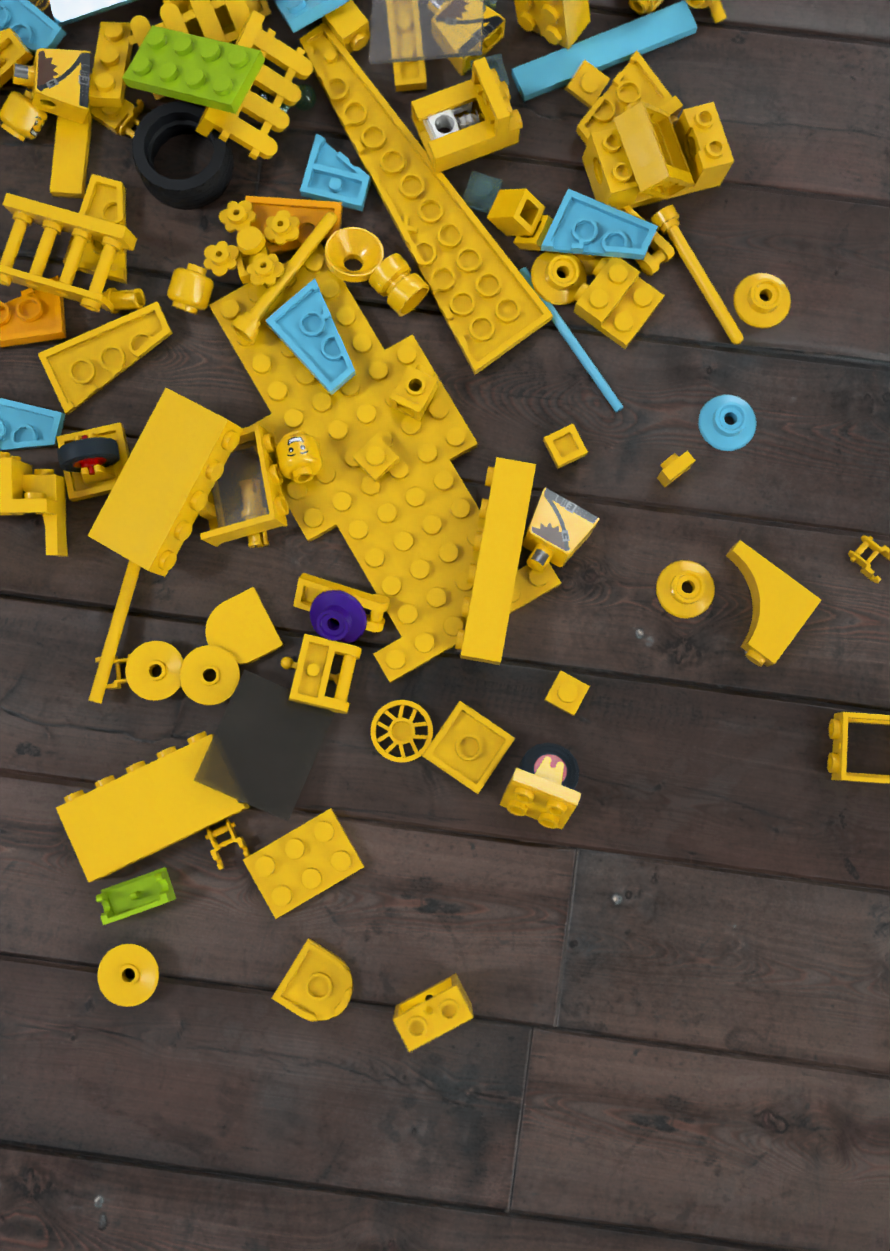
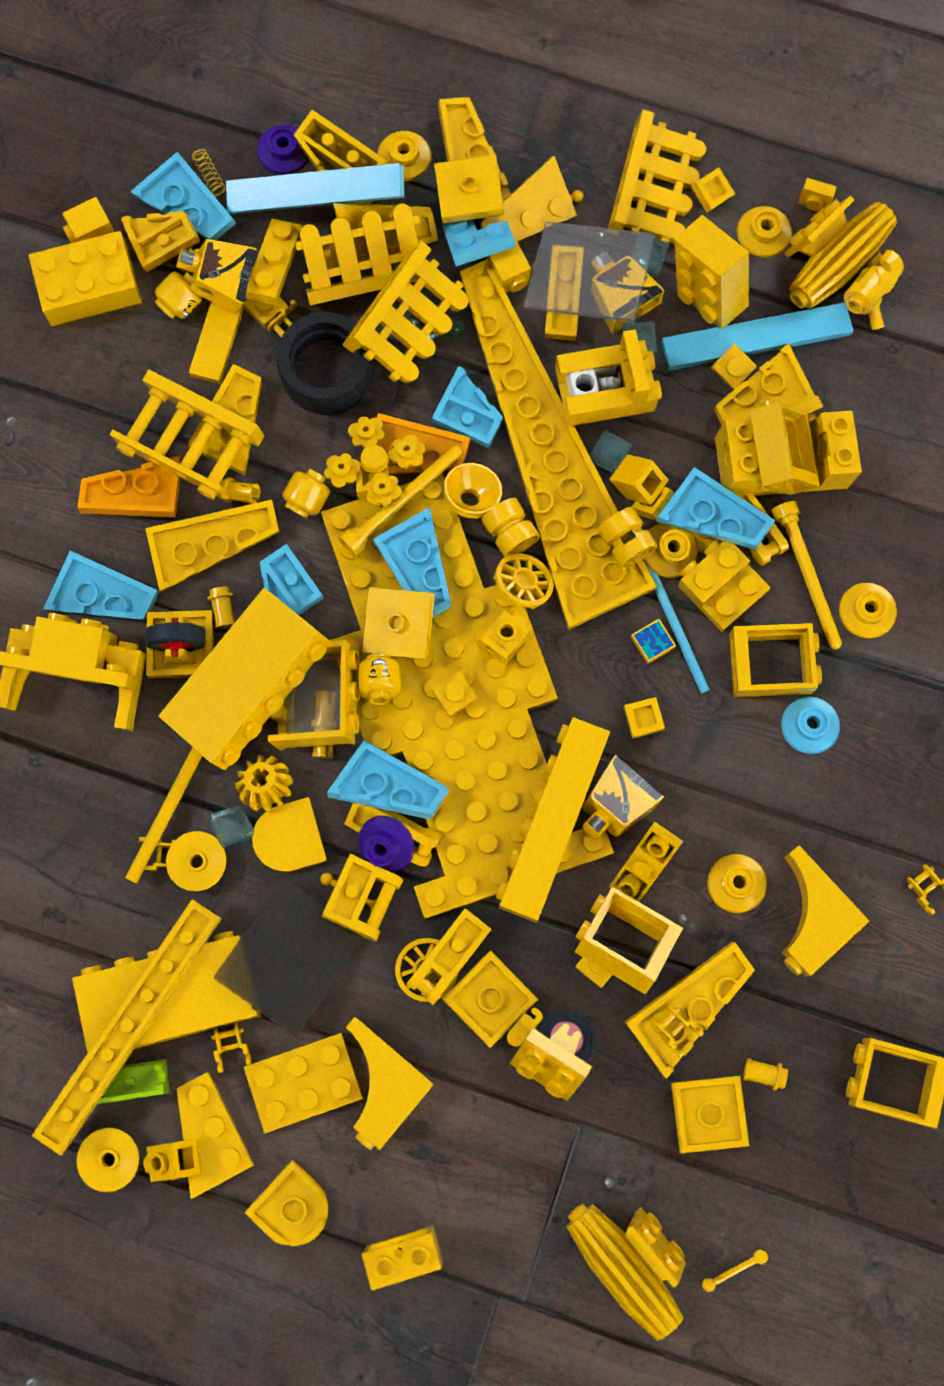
camera: 10 degrees right, 5 degrees down
(118, 845) = (126, 1028): none -> yellow tile
(130, 417) = (222, 607): none -> yellow pin
(182, 629) = (231, 826): none -> clear light blue plate
(182, 967) = (163, 1160): none -> yellow brick
(191, 378) = (289, 580): none -> medium azure wing
(193, 670) = (236, 864): yellow piece -> none
(194, 69) = (353, 288): lime plate -> none
(206, 569) = (251, 783): none -> yellow gear
(223, 932) = (217, 1138): none -> yellow wing
(307, 398) = (398, 623): none -> yellow plate
(327, 558) = (387, 784): none -> medium azure wing
(391, 852) = (393, 1089): none -> yellow arch
(421, 712) = (450, 955): none -> yellow plate
(422, 334) = (523, 580): none -> yellow wheel
(506, 768) = (523, 1027): none -> yellow piece
(508, 262) = (621, 528): none -> yellow wheel
(559, 370) = (653, 641): none -> tile
(595, 586) = (646, 862): none -> yellow slope
(599, 640) = (643, 919): none -> yellow window
(648, 371) = (740, 661): none -> yellow window
(654, 726) = (698, 997): none -> yellow wing
(655, 973) = (632, 1265): none -> yellow plate
(660, 732) = (687, 1022): none -> yellow piece
(675, 467) = (748, 760): yellow plate -> none
(701, 815) = (709, 1114): none -> yellow plate
(748, 766) = (765, 1074): none -> yellow pin
(773, 940) = (758, 1257): none -> yellow hinge

